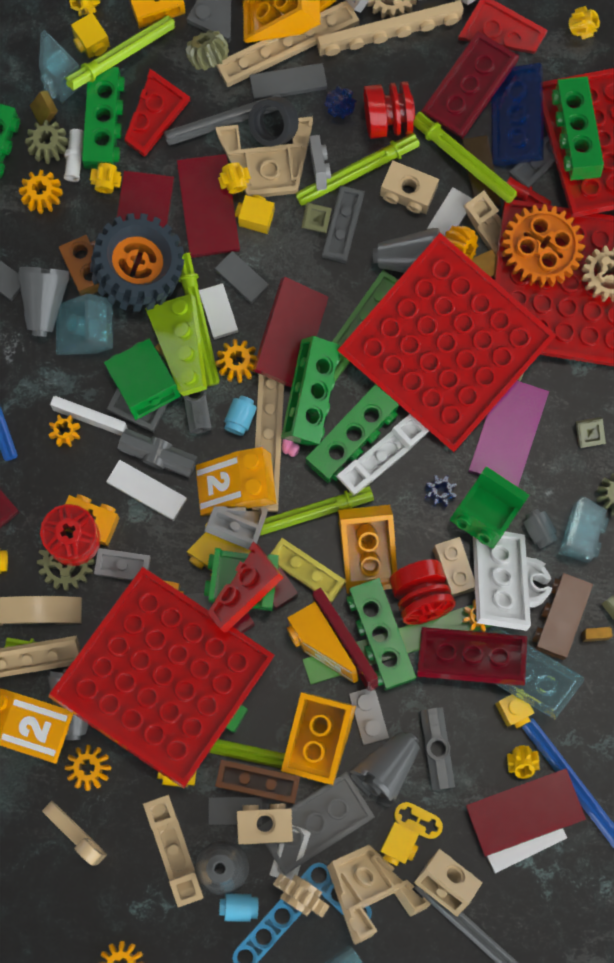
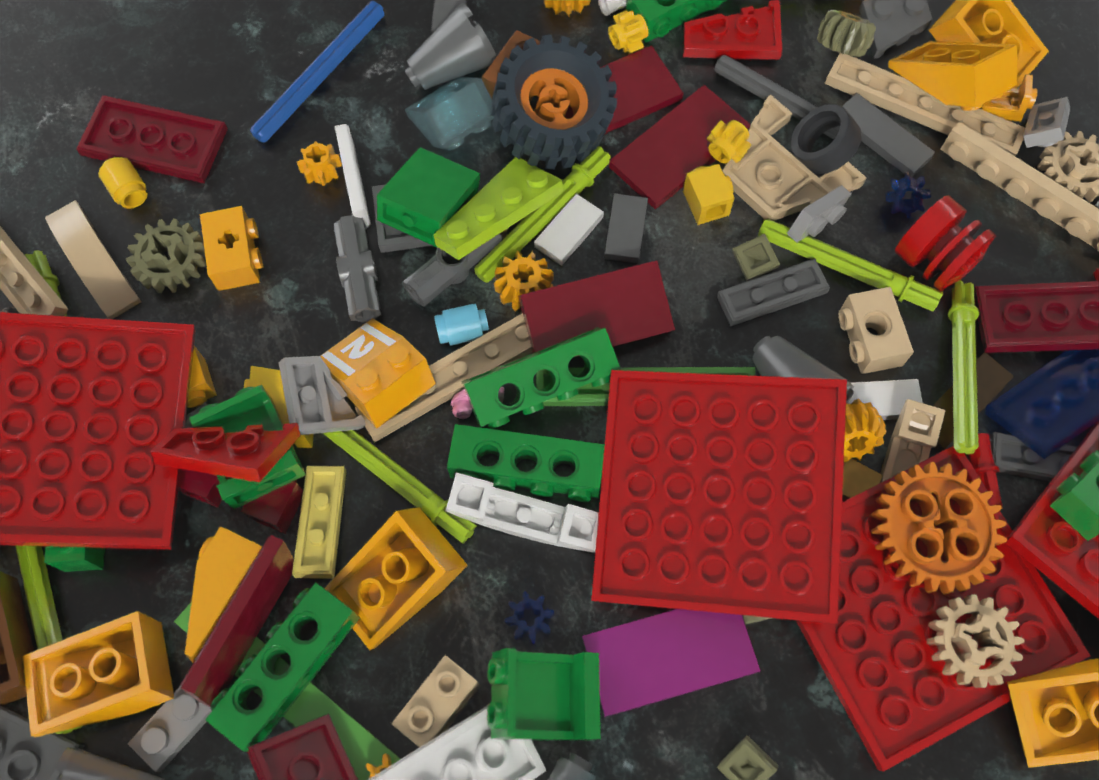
camera: 60 degrees right, 10 degrees down
(85, 530) = (181, 224): red wheel -> none
(120, 564) = (198, 307): light grey plate -> none
(146, 490) = (307, 287): white tile -> none
(422, 592) = (362, 689): red wheel -> none

